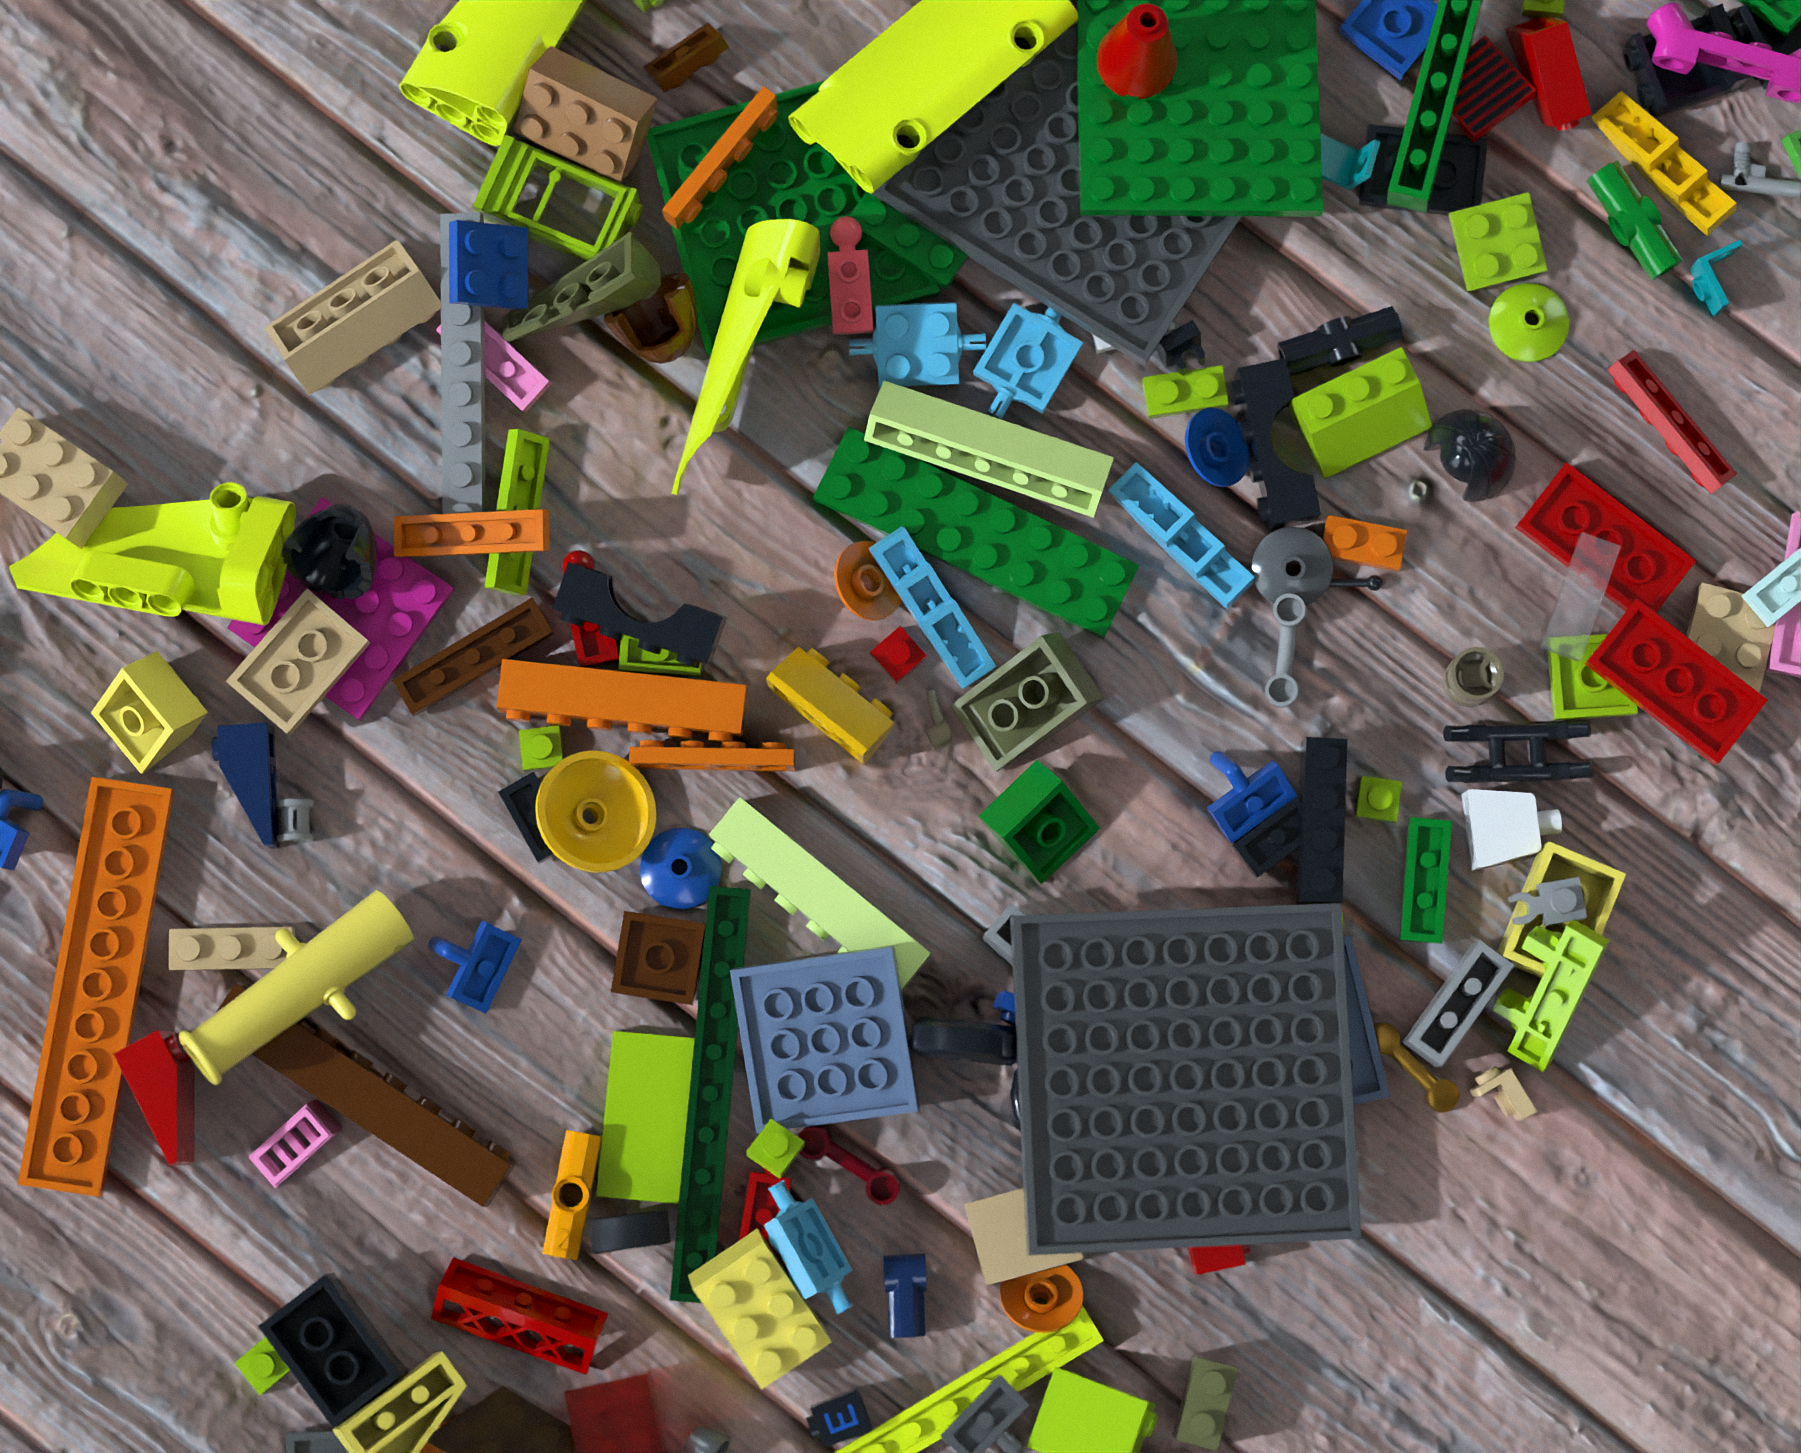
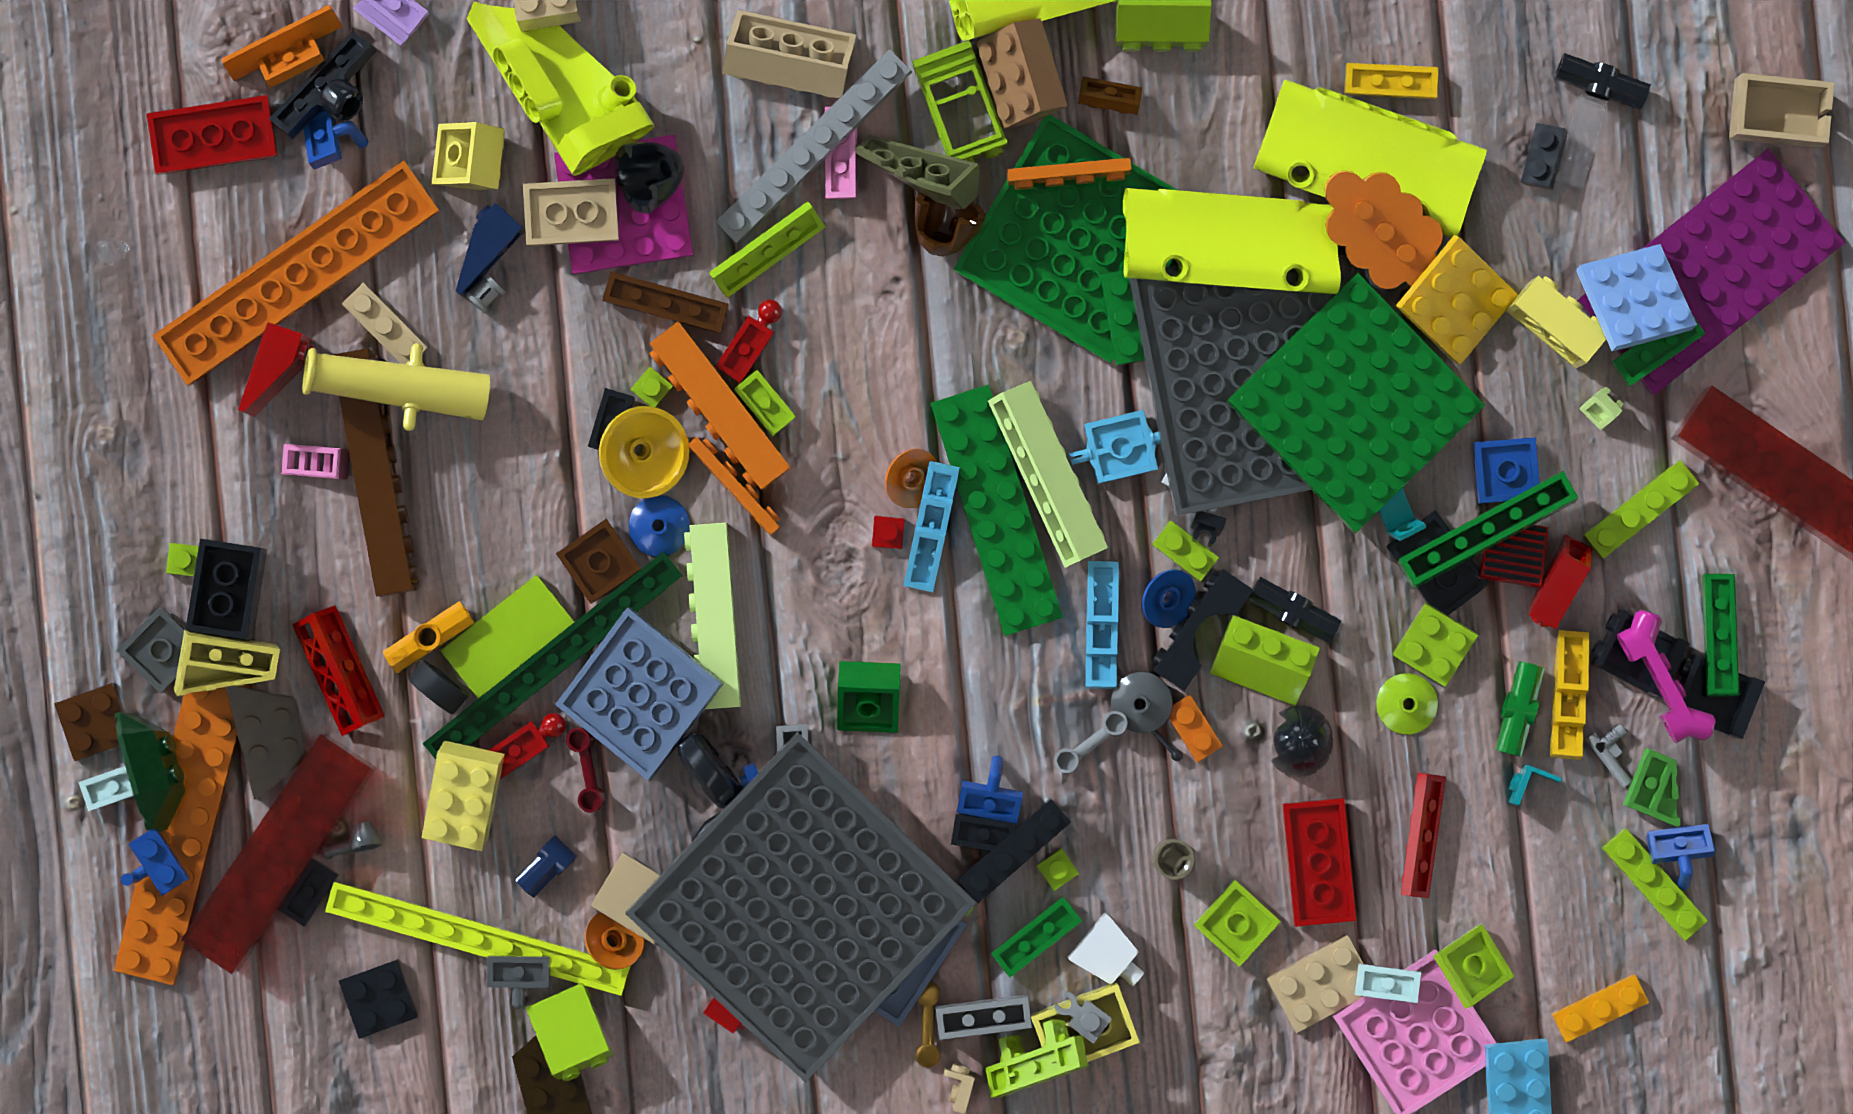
camera: 40 degrees right, 5 degrees up
(472, 533) = (730, 238): orange plate -> none
(480, 966) = (502, 470): blue plate -> none
(488, 265) = (885, 103): blue plate -> none
(591, 598) = (756, 337): black arch -> none
(773, 266) = (1025, 264): neon yellow panel -> none
(775, 1148) = (555, 723): lime plate -> none
(808, 1248) = (519, 791): medium azure plate -> none
(831, 703) = (825, 522): yellow slope -> none
(839, 1418) = (446, 893): black brick -> none
(849, 280) = (1068, 307): coral plate -> none
(917, 344) = (1070, 378): medium azure plate -> none
(939, 734) = (866, 597): dark tan hand -> none
(1027, 700) = (929, 627): olive slope -> none
(1138, 53) = (1343, 349): red cone -> none
(1205, 1402) = (640, 1080): olive brick -> none
(1536, 734) = (1158, 940): black piece -> none
(1580, 596) = (1274, 876): clear tile -> none
(1676, 682) = (1274, 972): red plate -> none

